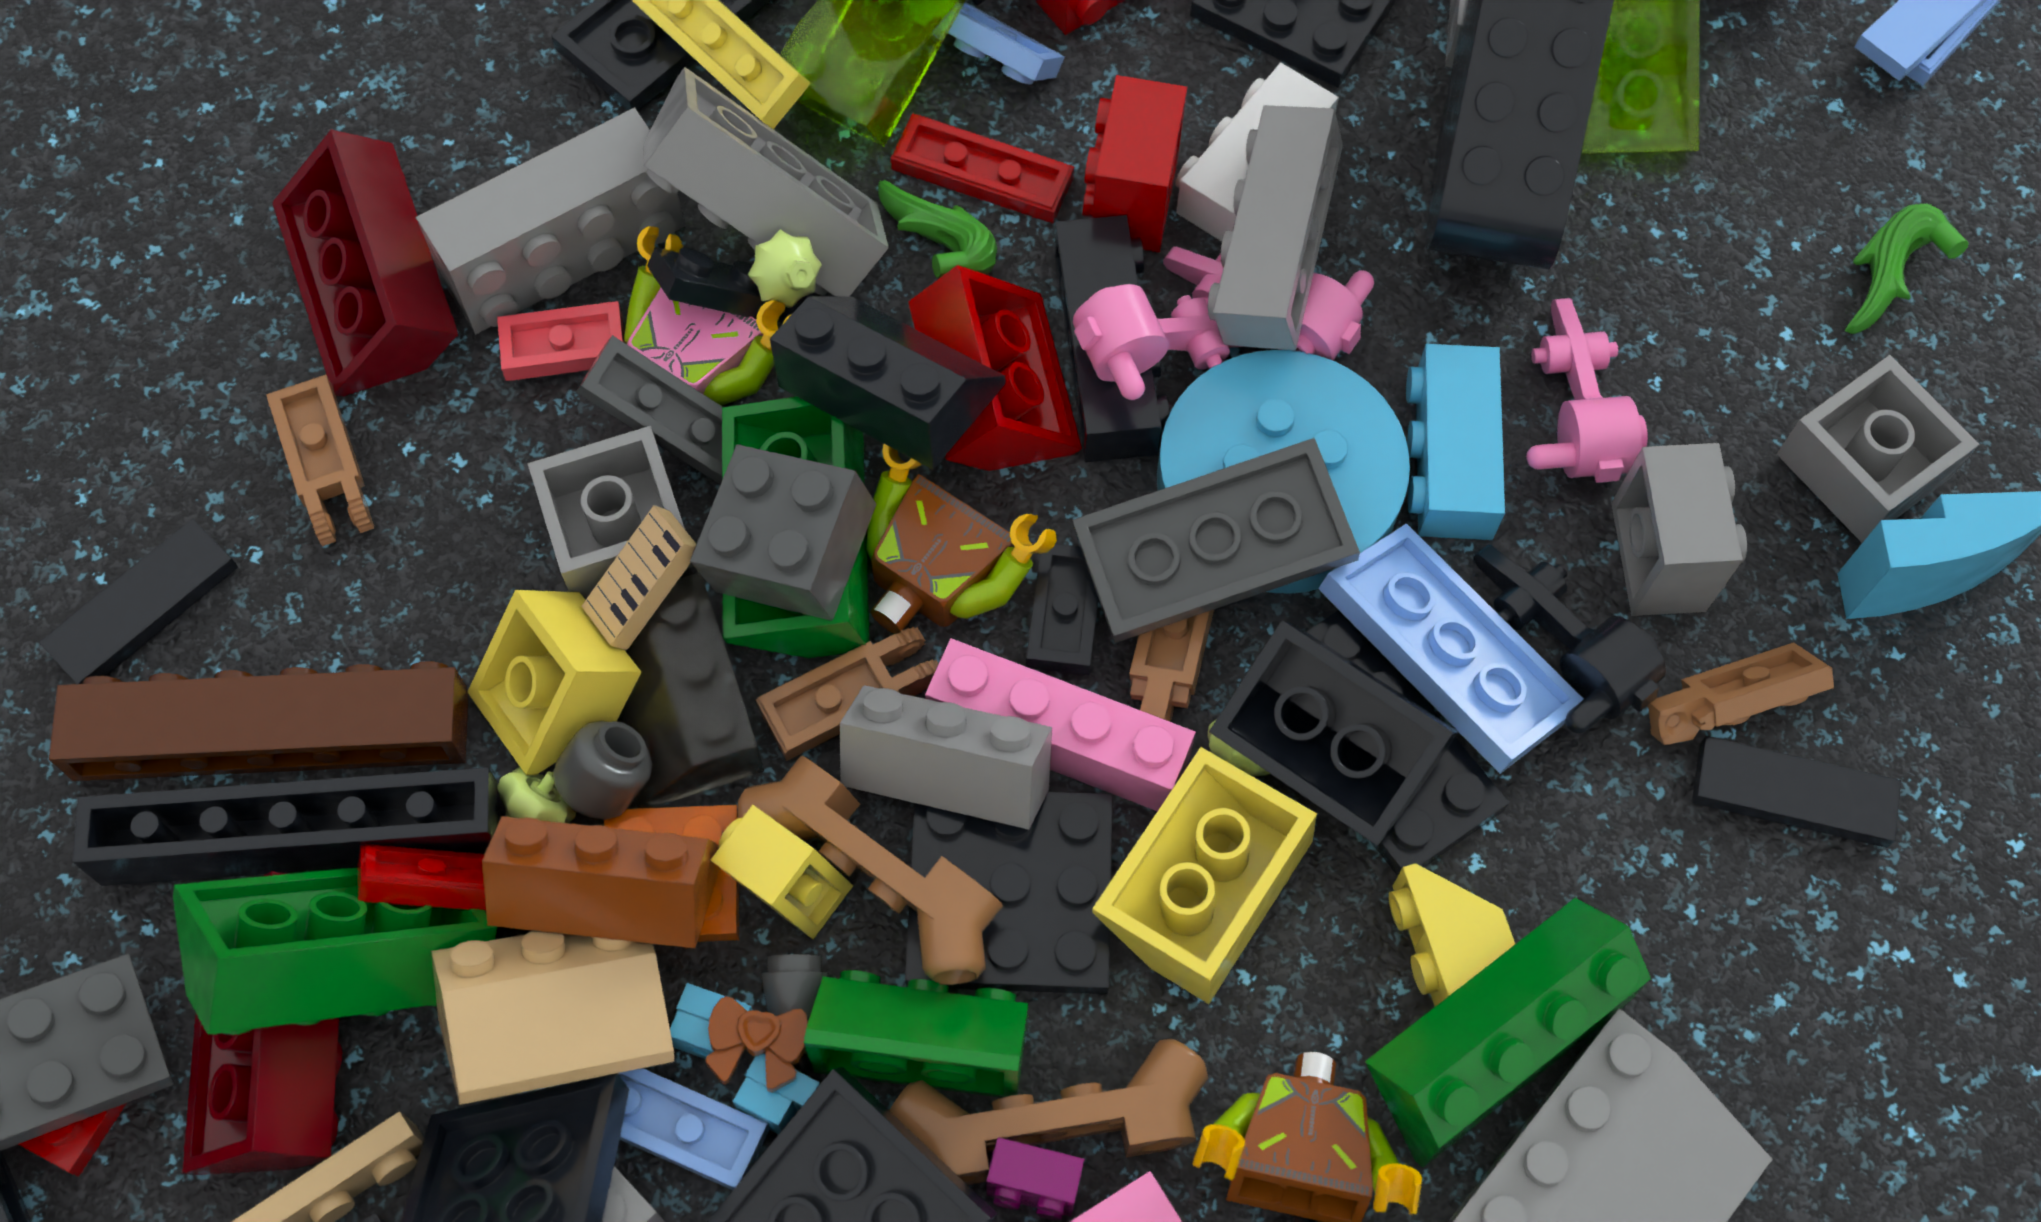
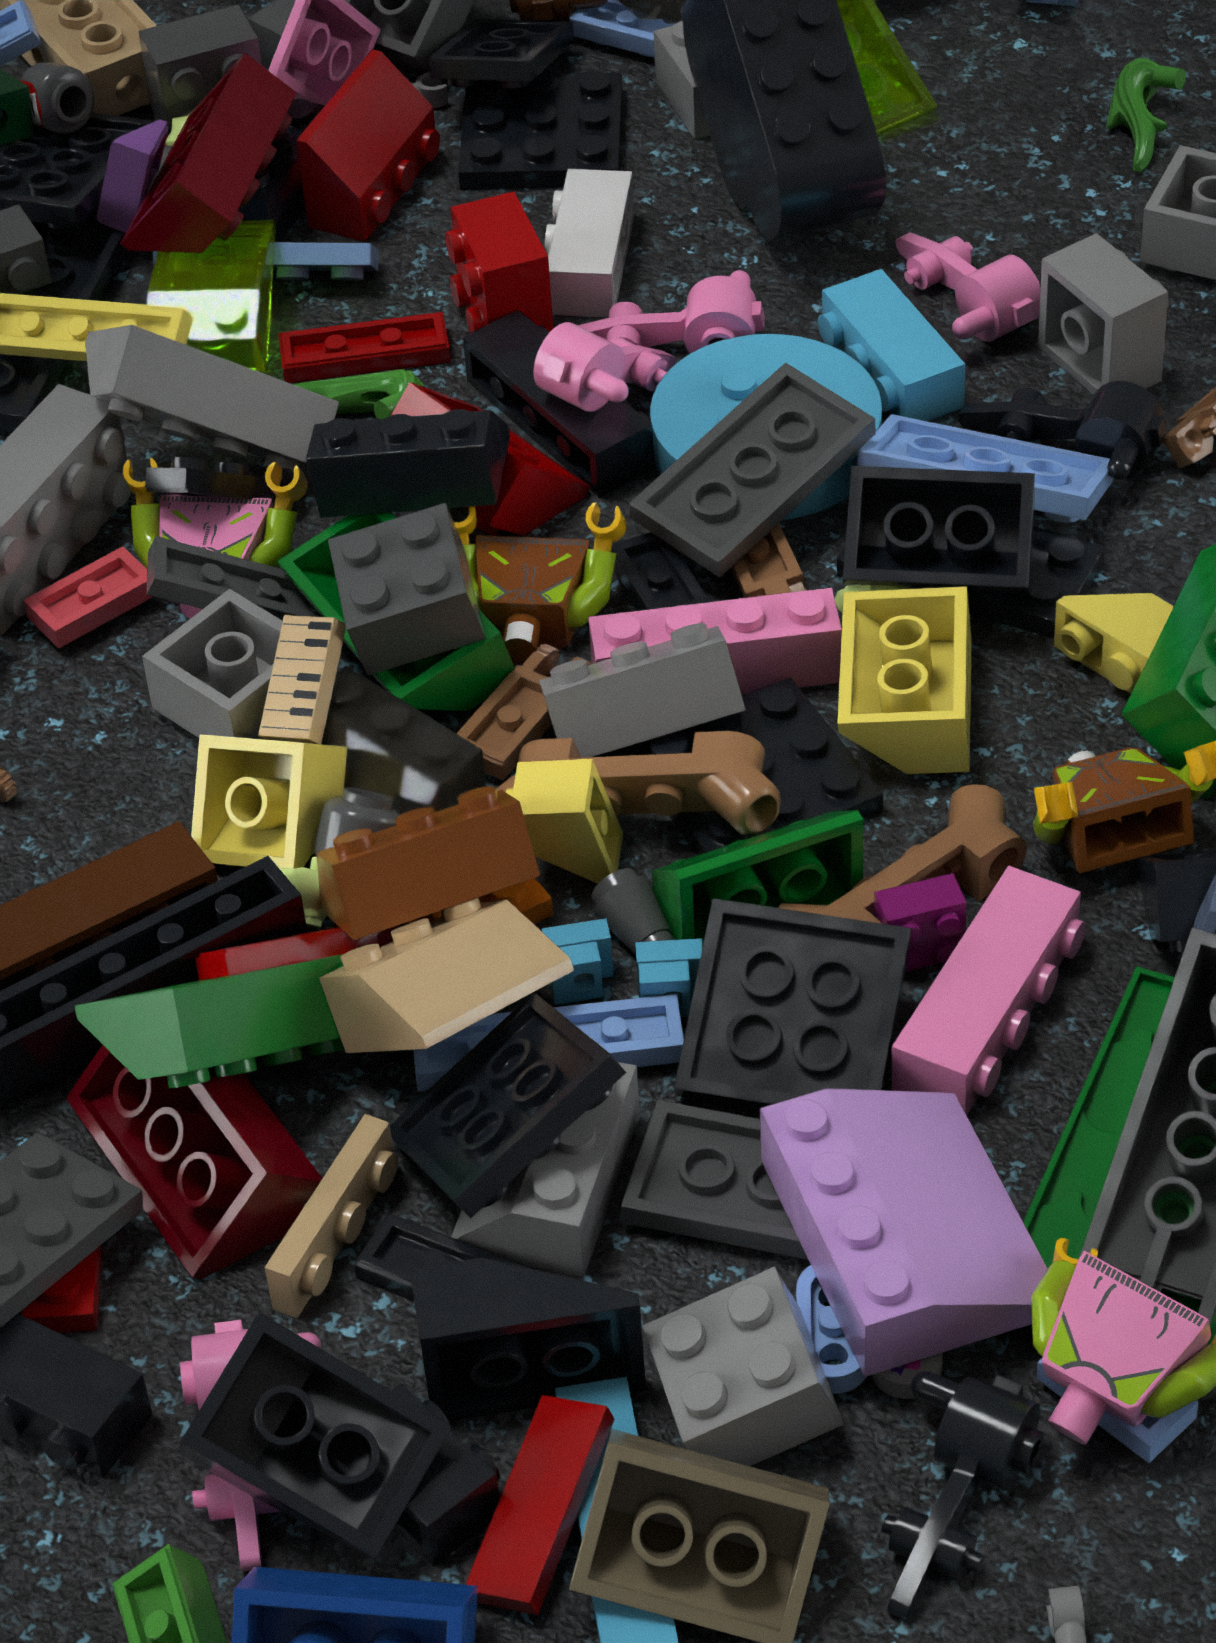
camera: 25 degrees left, 20 degrees down
(736, 1029) = (626, 926): dark orange piece -> none
(785, 268) = (266, 439): yellowish green piece -> none
(1276, 227) = (653, 254): light grey brick -> none

